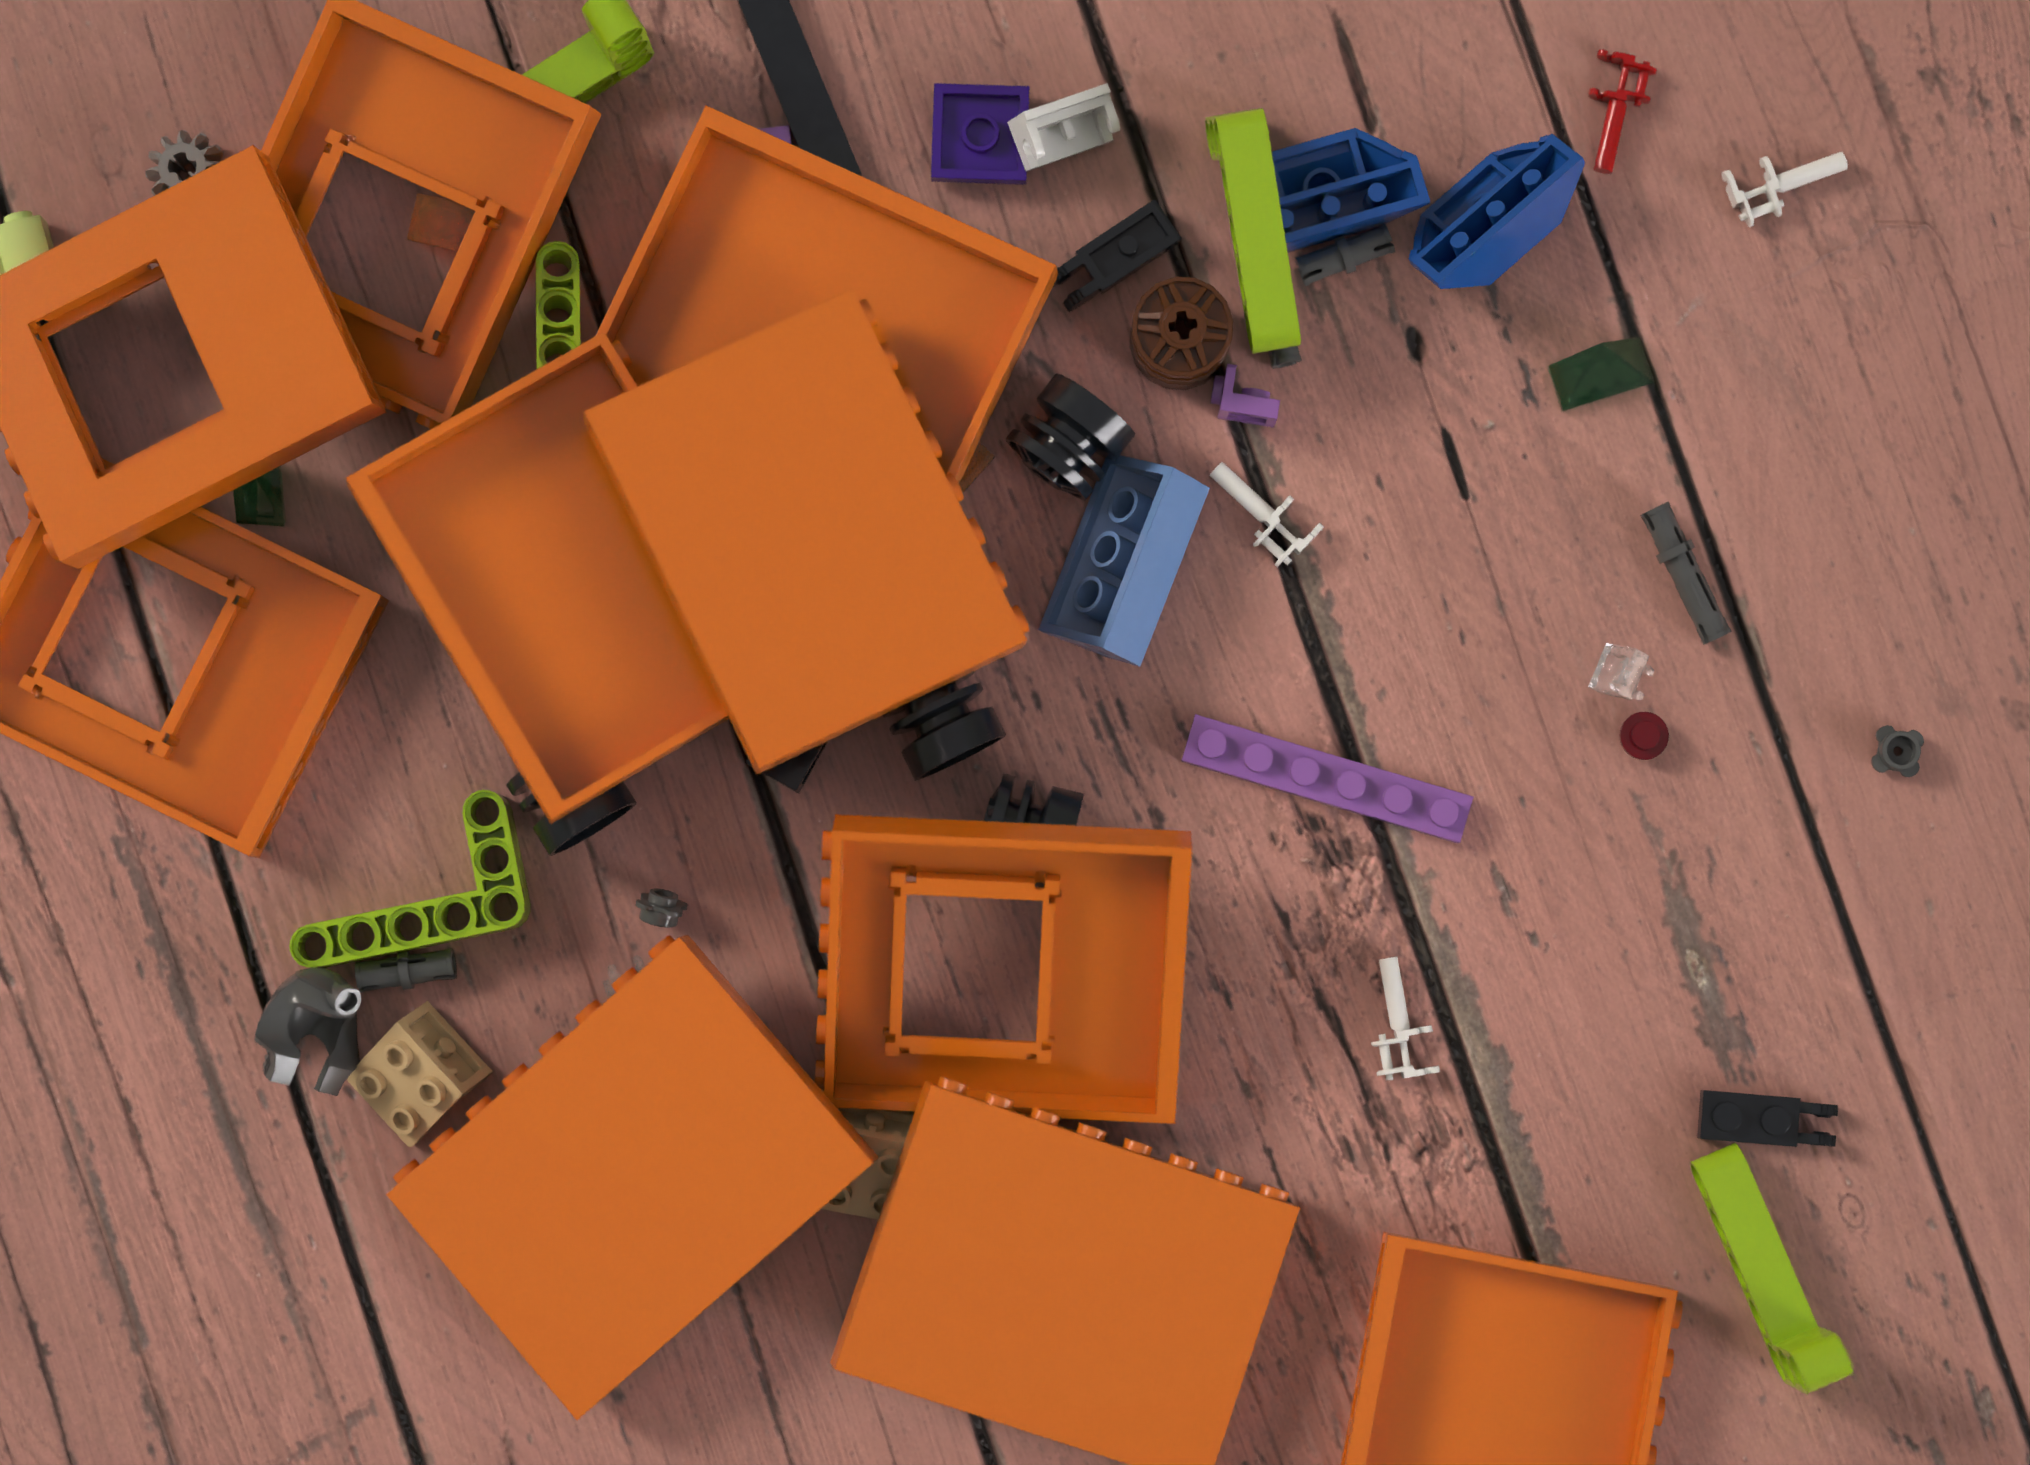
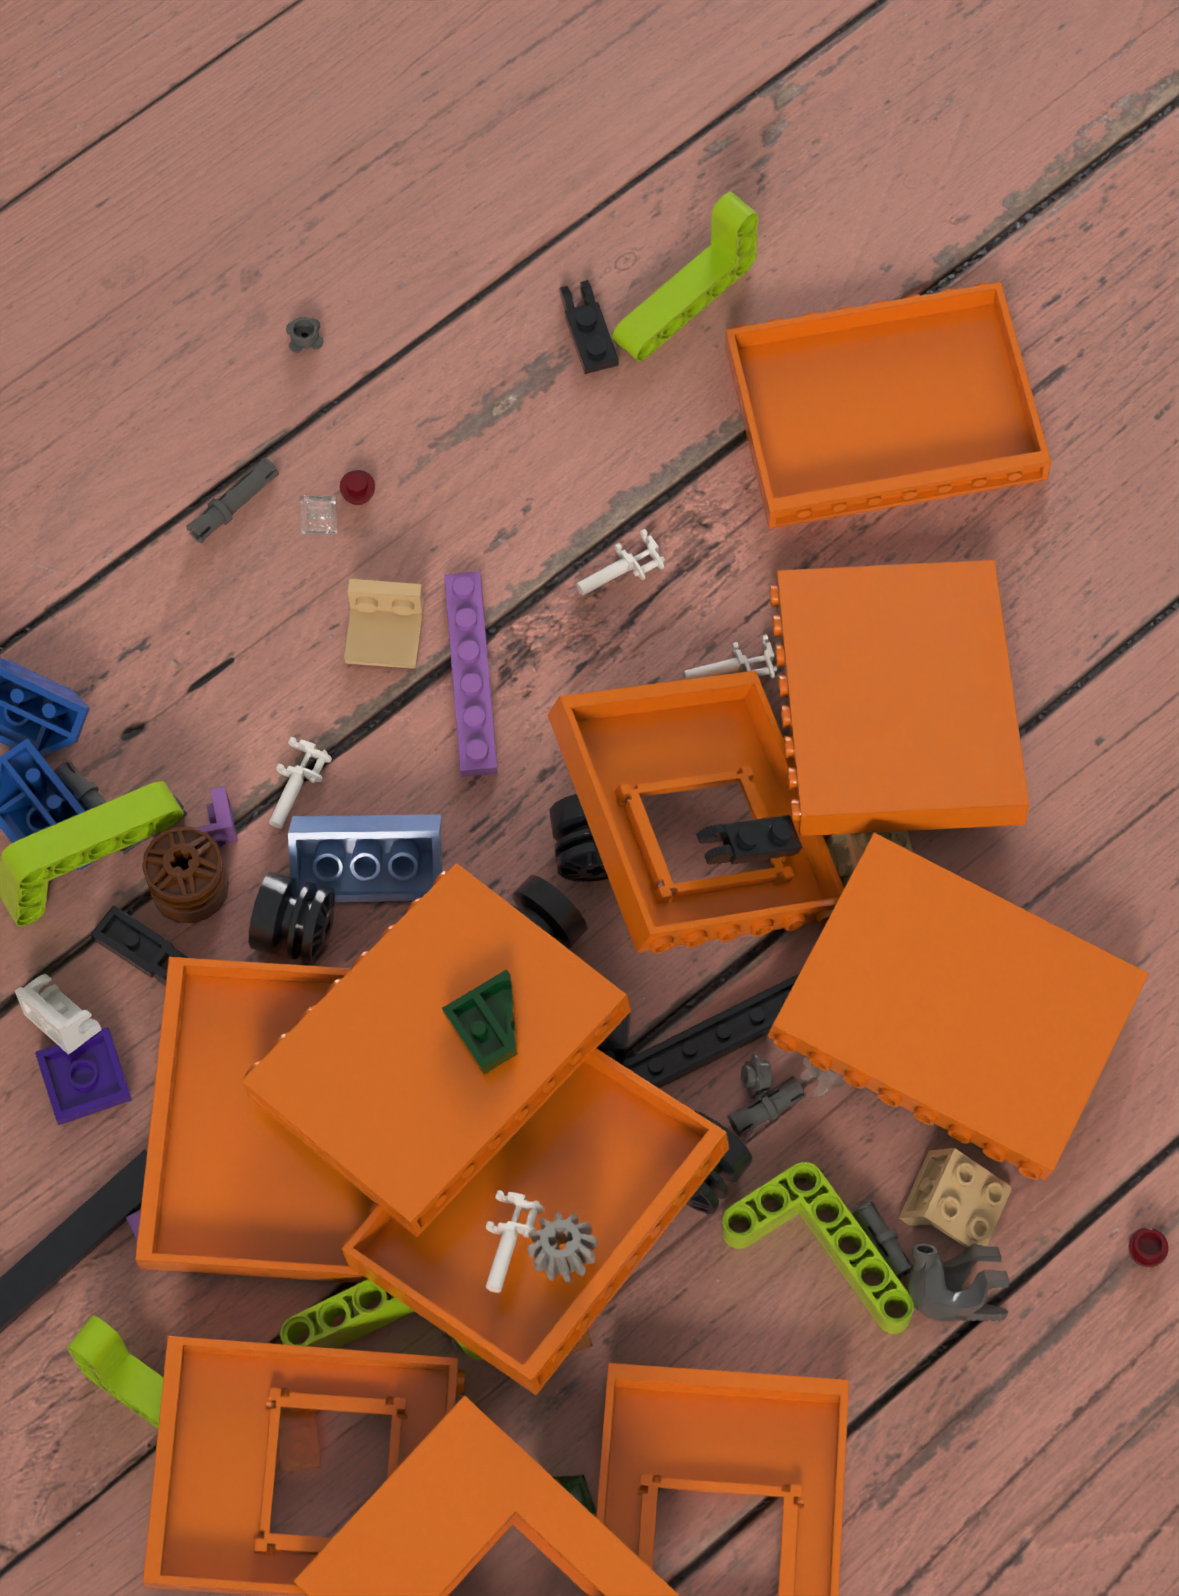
camera: 110 degrees left, 20 degrees down
(273, 1271) = (1148, 1247): none -> dark red plate
(500, 566) = (547, 1244): none -> light grey gear
(529, 521) = (509, 1235): none -> white piece
(621, 905) = (766, 1106): none -> dark grey pin
(733, 875) = (711, 1038): none -> black tile
(789, 589) = (486, 1021): none -> dark green wing
(928, 1016) = (751, 840): none -> black hinge
(1205, 1104) = (737, 664): none -> white piece
(1426, 693) = (384, 623): none -> tan bracket
(1600, 373) = (110, 604): clear green slope -> none

